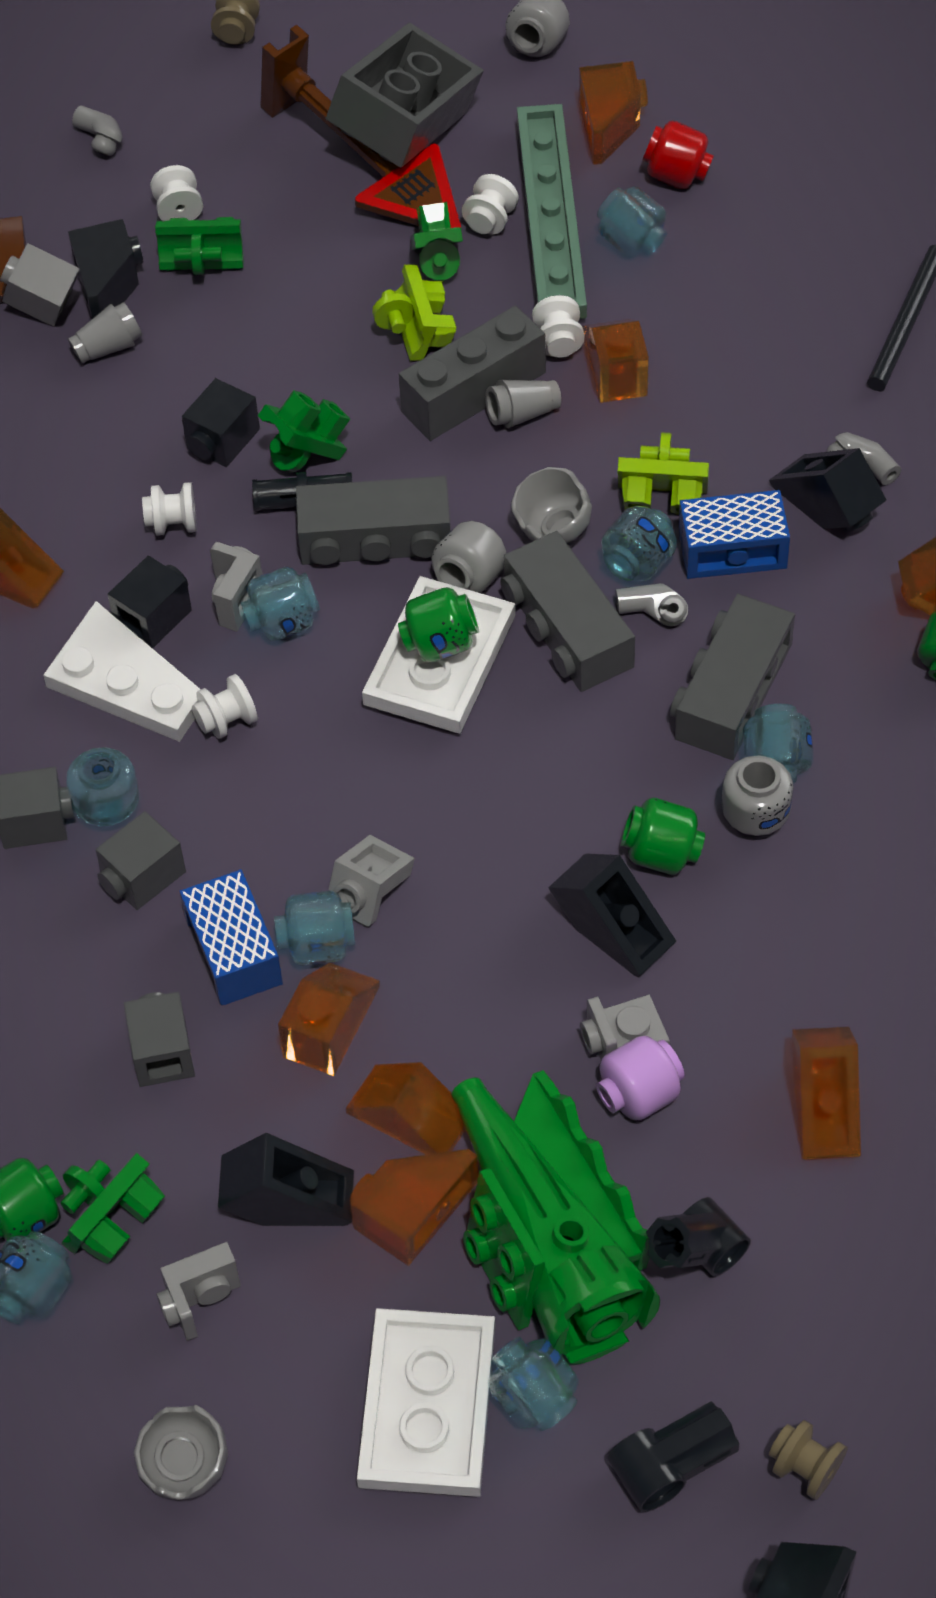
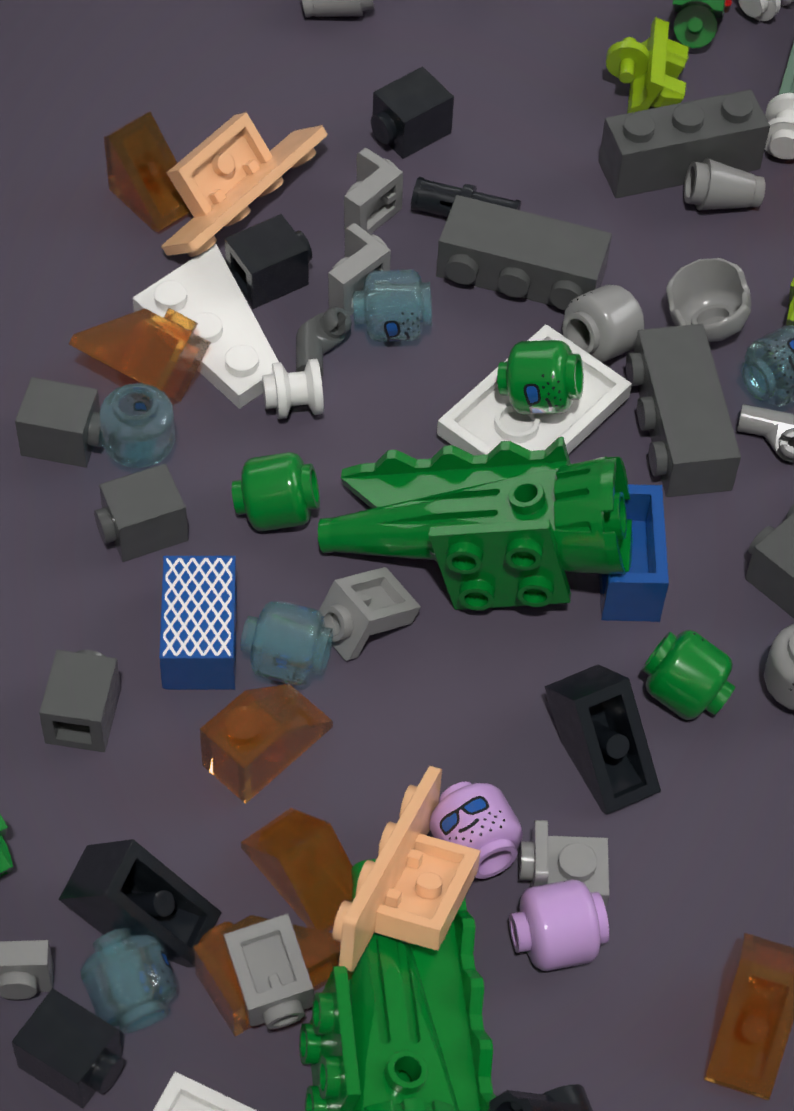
camera: 15 degrees right, 0 degrees up
(81, 715) = (148, 348): none -> clear orange slope
(83, 536) = (228, 175): none -> light nougat bracket
(163, 509) = (319, 177): white wheel -> none
(219, 507) = (375, 194): none -> light grey bracket
(224, 653) = (320, 336): none -> dark grey arm
(248, 802) = (276, 491): none -> green head
(280, 1324) = (69, 1049): none -> black brick
(304, 430) = (490, 145): green hips -> none
(305, 1251) = (129, 980): none -> clear light blue head
(425, 1198) = (270, 972): none -> light grey bracket
(452, 762) = (492, 521): none -> green piece
(513, 1083) = (411, 885): none -> light nougat bracket
(539, 1025) = (479, 819): none -> lavender head
(574, 749) = (643, 589): none -> blue panel

